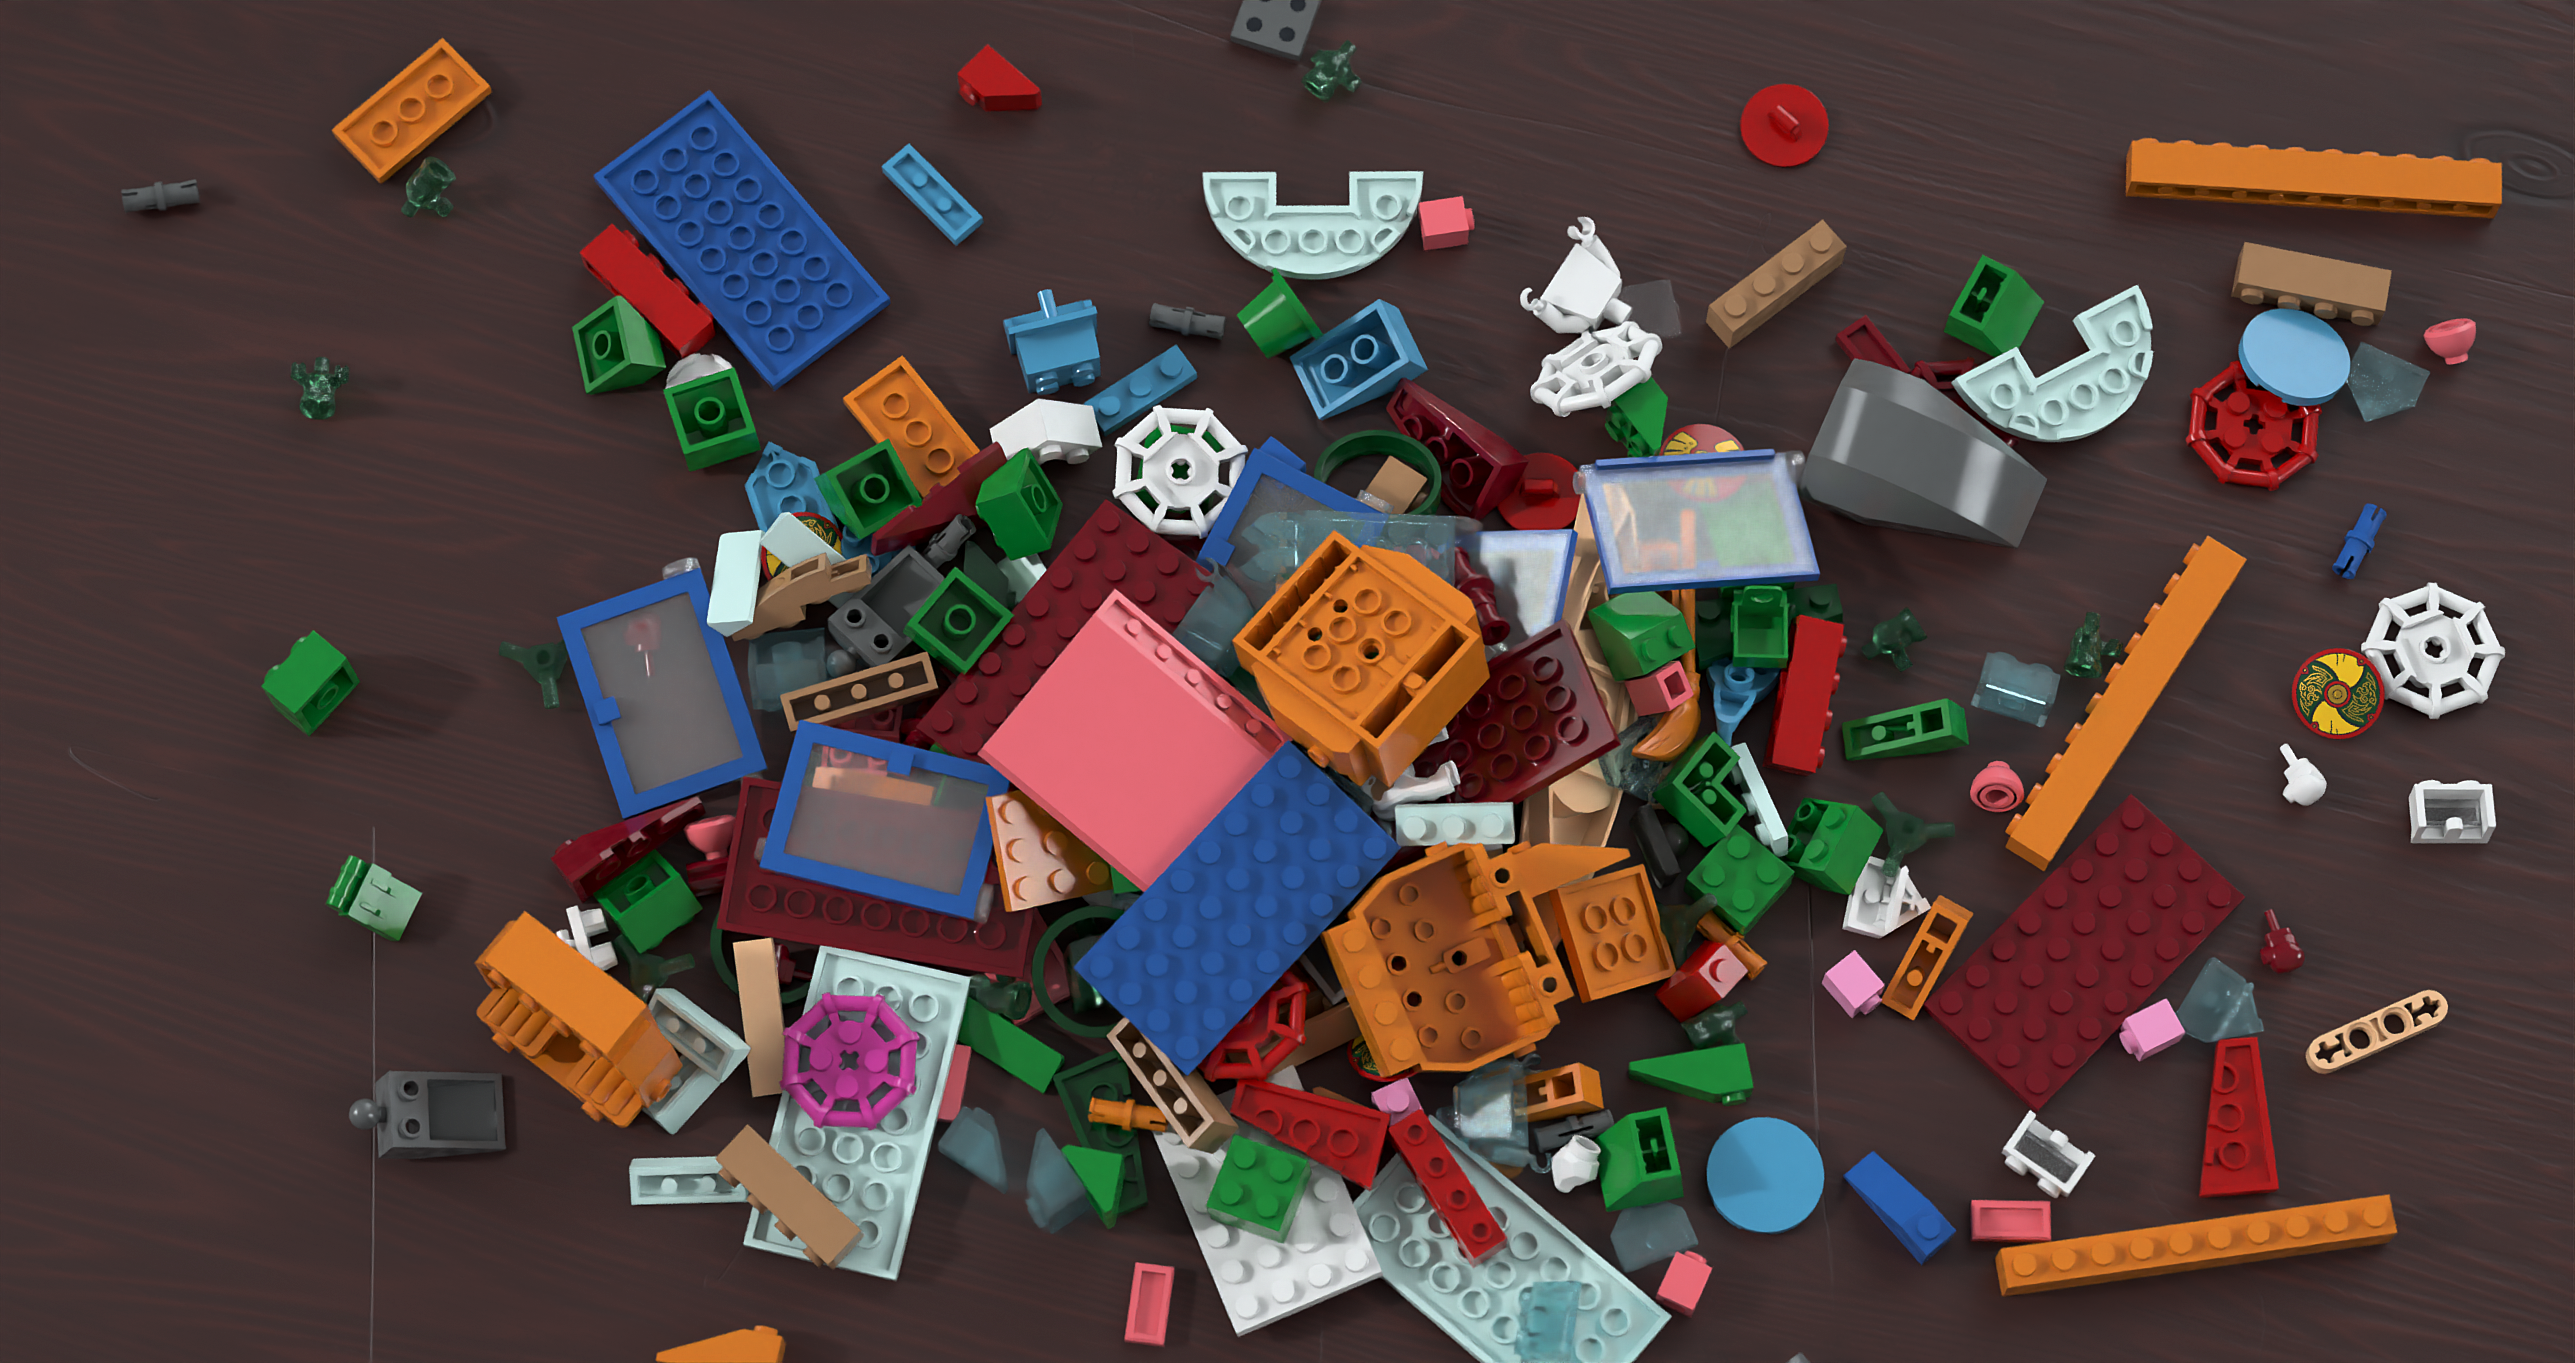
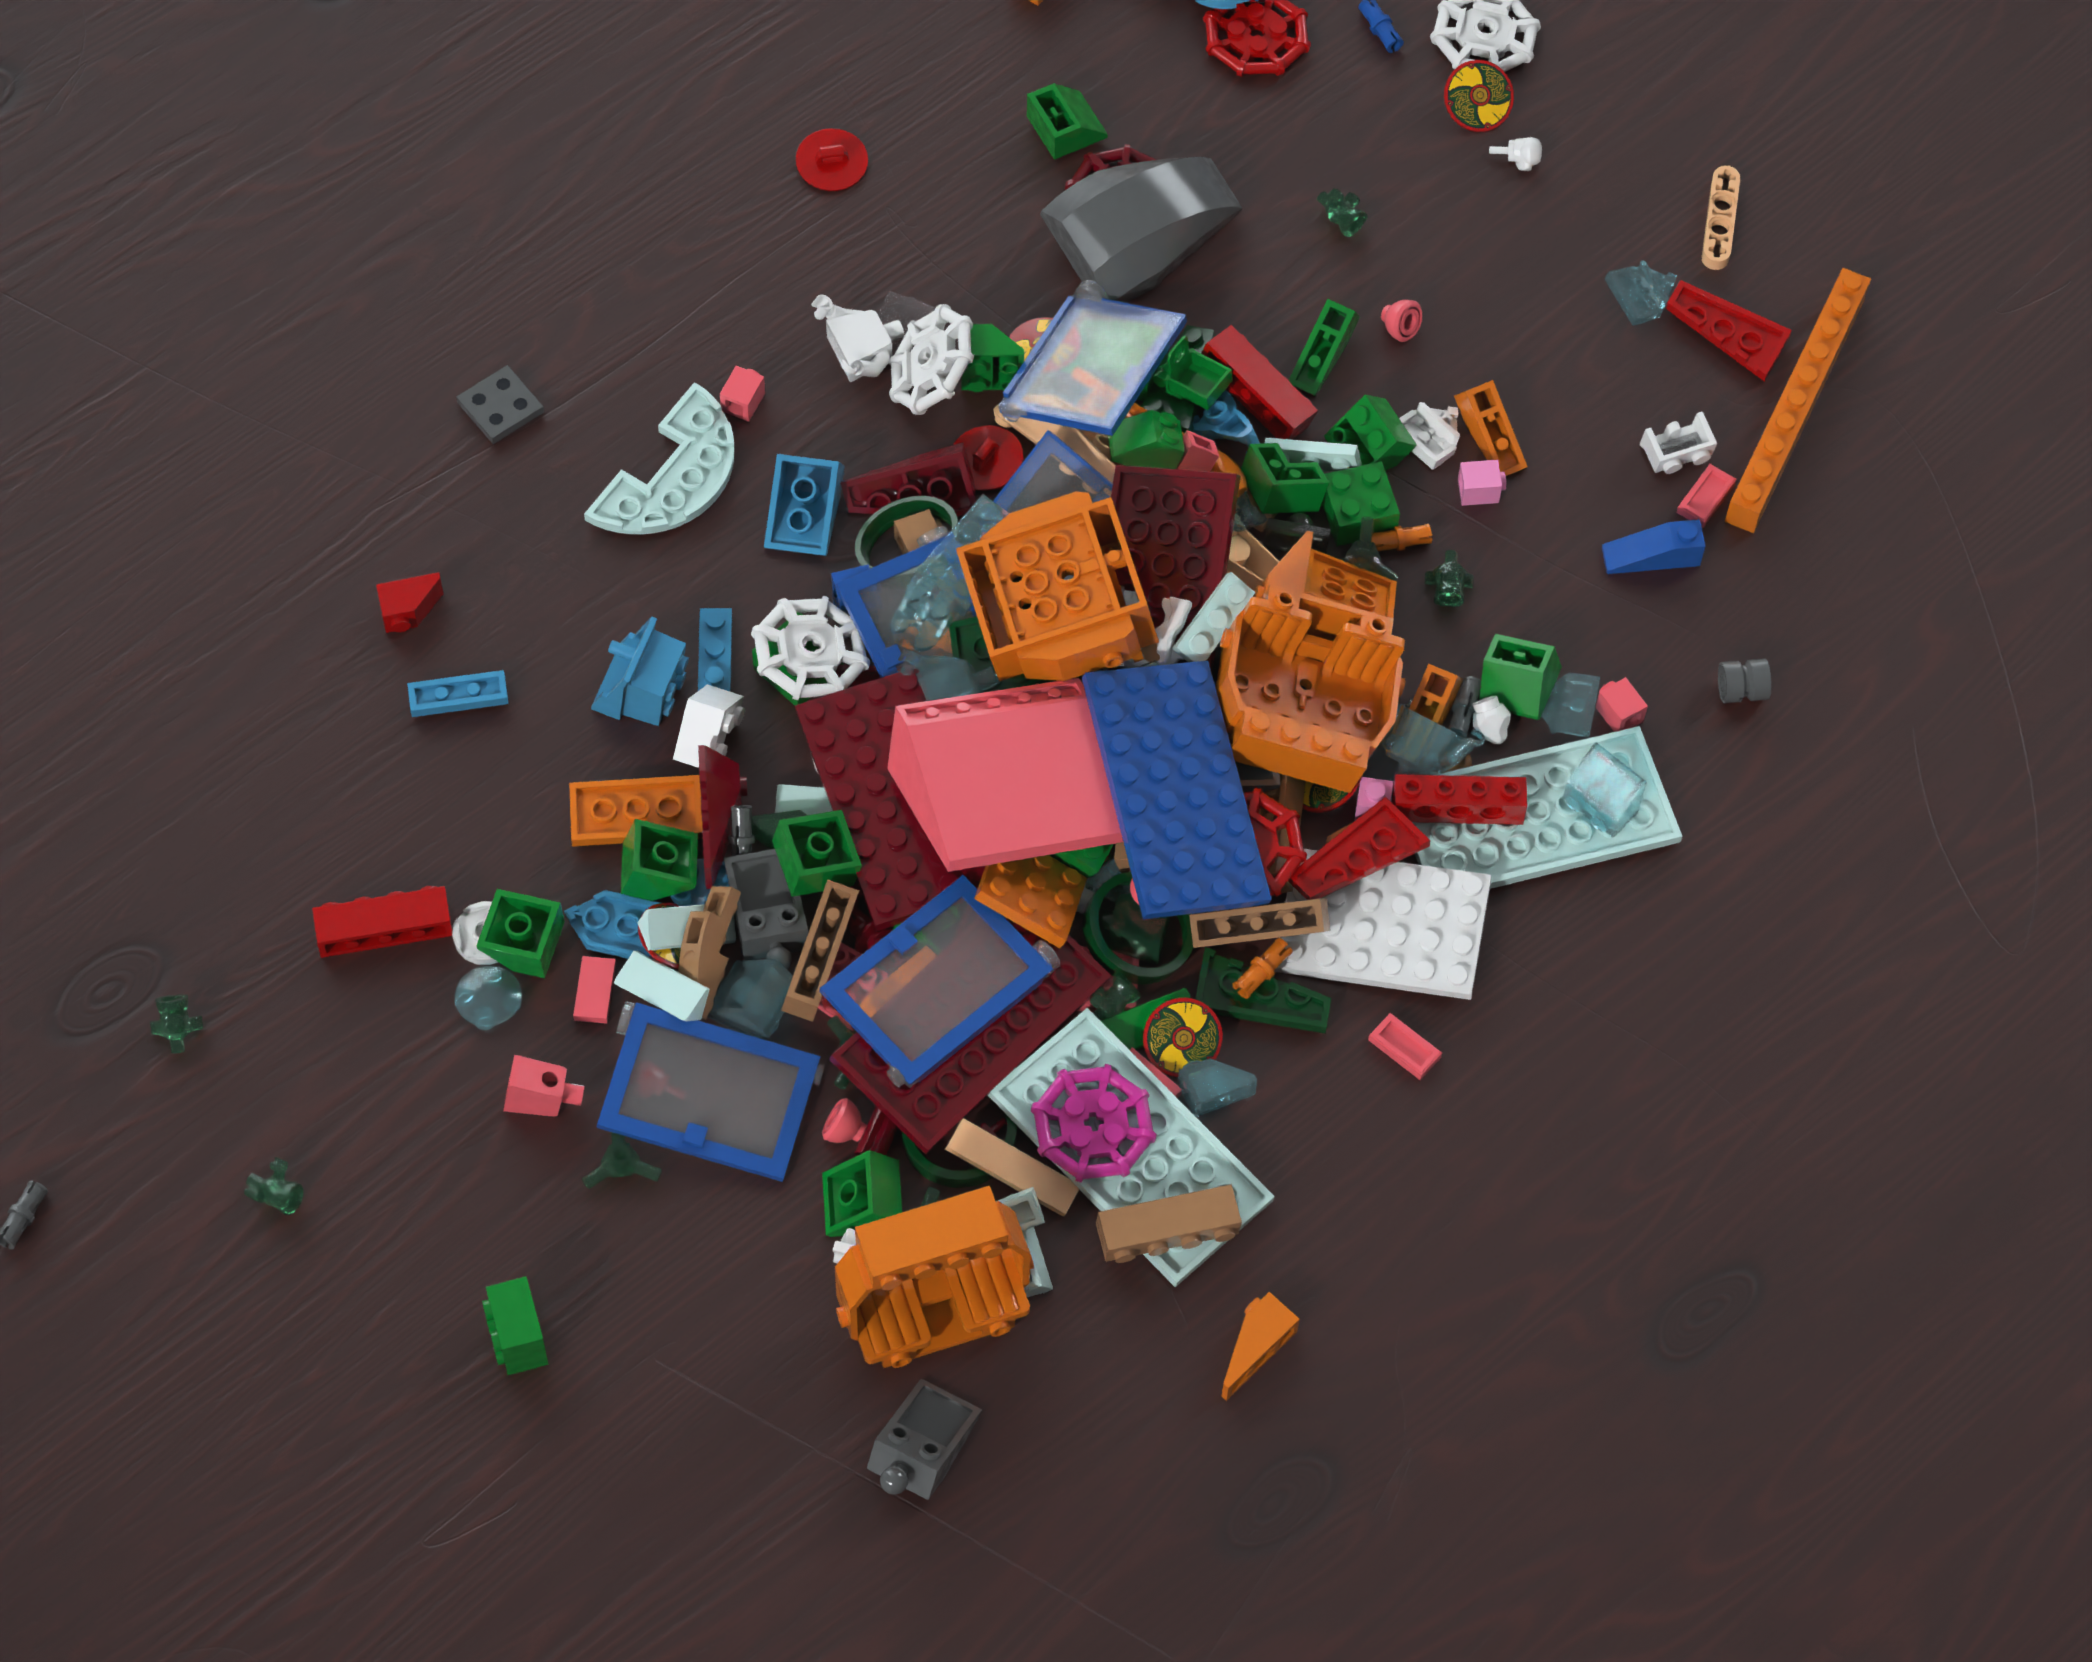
camera: 60 degrees left, 10 degrees down
(373, 898) = (720, 1383): piece -> none
(411, 111) = (100, 998): orange plate -> none
(559, 531) = (539, 1088): none -> coral torso
(608, 852) = (804, 1202): dark red wedge -> none
(617, 347) = (408, 967): green slope -> none
(637, 435) = (488, 996): none -> clear light blue dish
(681, 1182) = (1095, 1299): light aqua slope -> none
(707, 523) = (594, 989): none -> coral tile
(742, 240) = (389, 836): blue plate -> none
(1008, 1085) = (1181, 1033): none -> shield
(1020, 506) = (755, 769): green slope -> none
(1053, 1187) = (1278, 1046): clear light blue slope -> none
(1102, 1177) = (1304, 1009): green slope -> none
(1187, 321) = (687, 592): dark grey pin -> none
(1258, 1189) = (1381, 911): green brick -> none
(1278, 318) = (737, 525): green container -> none
(1330, 70) = (572, 394): clear green piece -> none
(1701, 980) = (1414, 565): red slope -> none
(1705, 1074) = (1481, 608): green slope -> none
(1765, 1175) = (1576, 616): dark azure tile -> none
(1776, 284) = (946, 228): medium nougat brick -> none
(1866, 343) = (1026, 207): dark red tile -> none
(1894, 636) = (1250, 312): clear green piece -> none
(1906, 832) = (1395, 390): clear green piece -> none
(2016, 688) = (1343, 265): clear light blue slope -> none
(2077, 395) = (1162, 104): light aqua plate -> none
(2083, 953) = (1550, 344): dark red plate -> none
(2125, 703) = (1397, 215): orange brick -> none
(2151, 1030) = (1633, 335): bright pink brick -> none
(2282, 948) = (1628, 232): dark red piece -> none
(2451, 812) = (1604, 85): white window -> none

